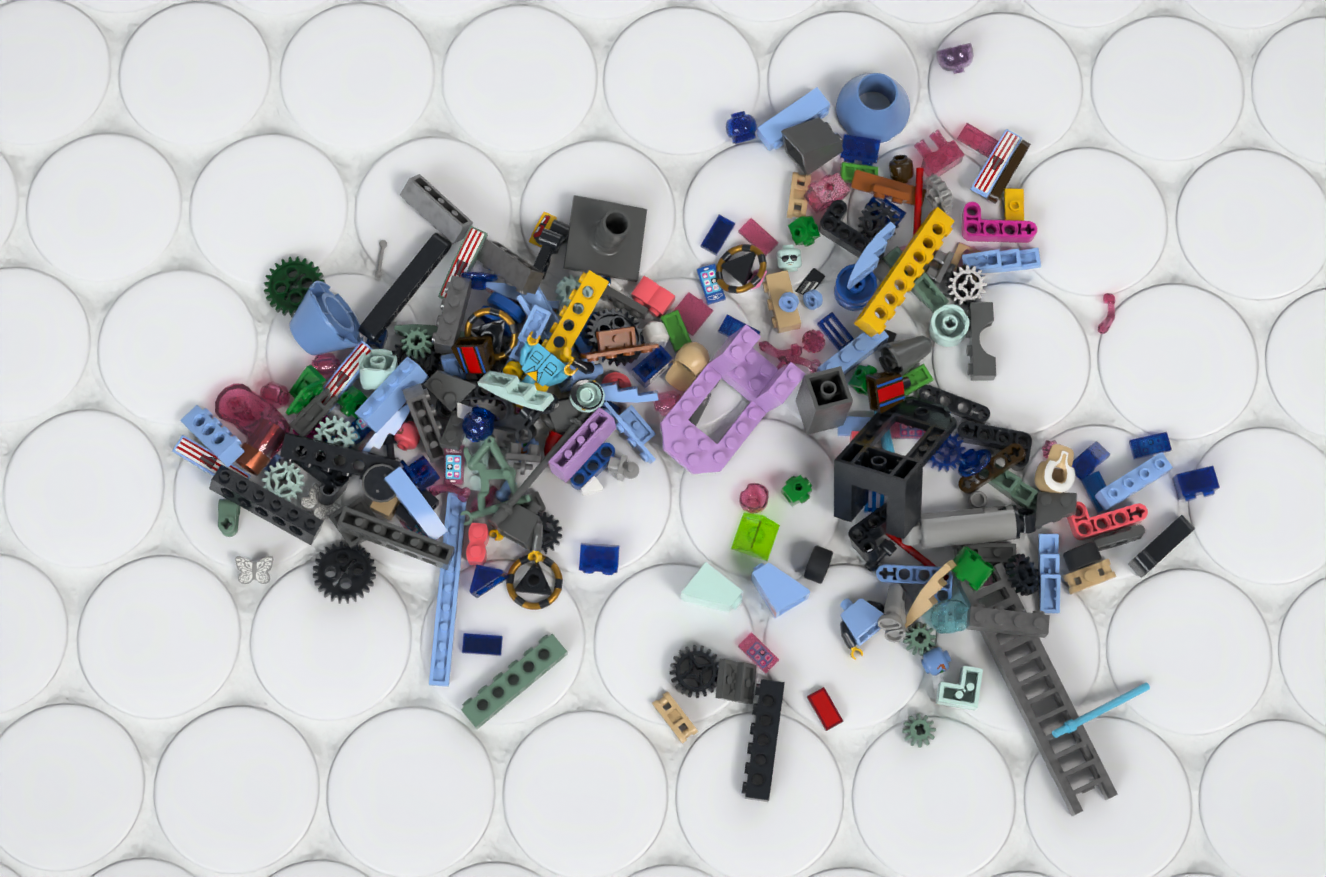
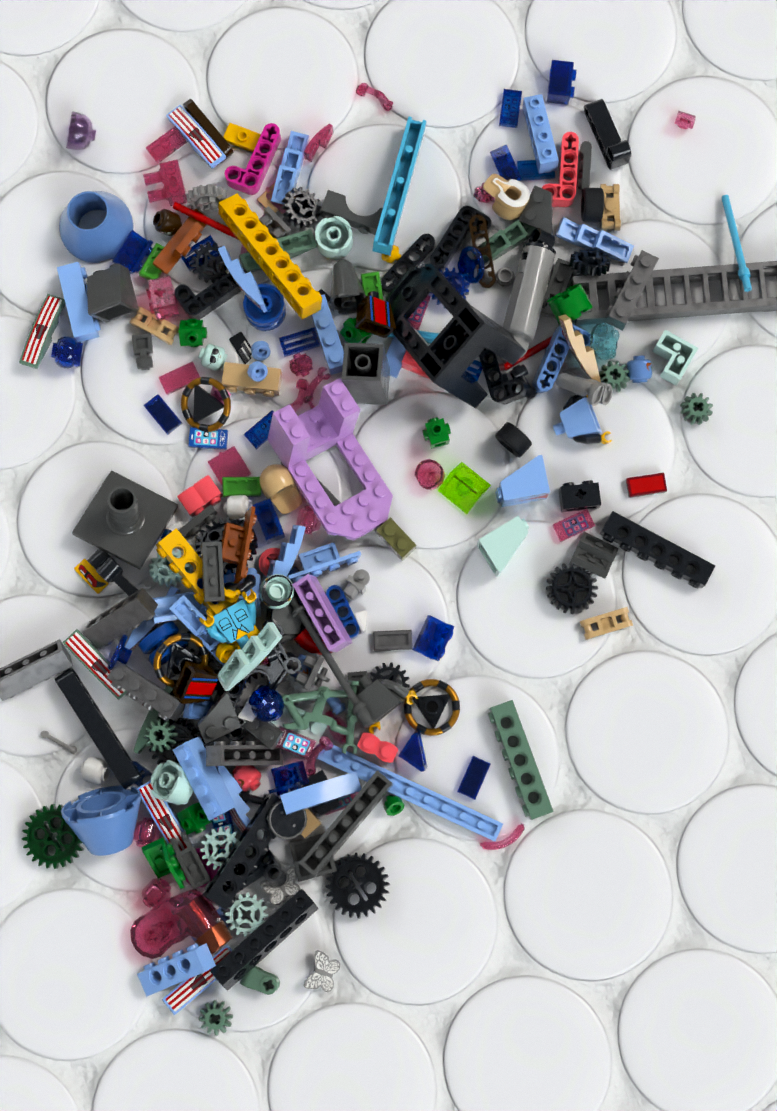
camera: 65 degrees left, 5 degrees up
(179, 496) = (215, 1025): none -> sand green gear
(365, 299) = (95, 770): none -> white head
(429, 578) = (393, 805): none -> green tile
(432, 696) = (505, 842): none -> clear pink piece
(581, 329) = (212, 571): none -> dark grey plate
(584, 522) = (392, 640): none -> flat silver tile
(680, 489) = (396, 539): none -> olive brick
(752, 97) = (42, 331): none -> slope
(774, 191) = (142, 346): none -> dark grey plate
(788, 659) = (570, 502): none -> black brick
(956, 384) = (394, 255): none -> yellow tile
(1023, 366) = (399, 187): none -> medium azure tile
(1044, 279) = (320, 139): none -> clear pink slope
(1208, 618) = (685, 120): none -> clear pink plate

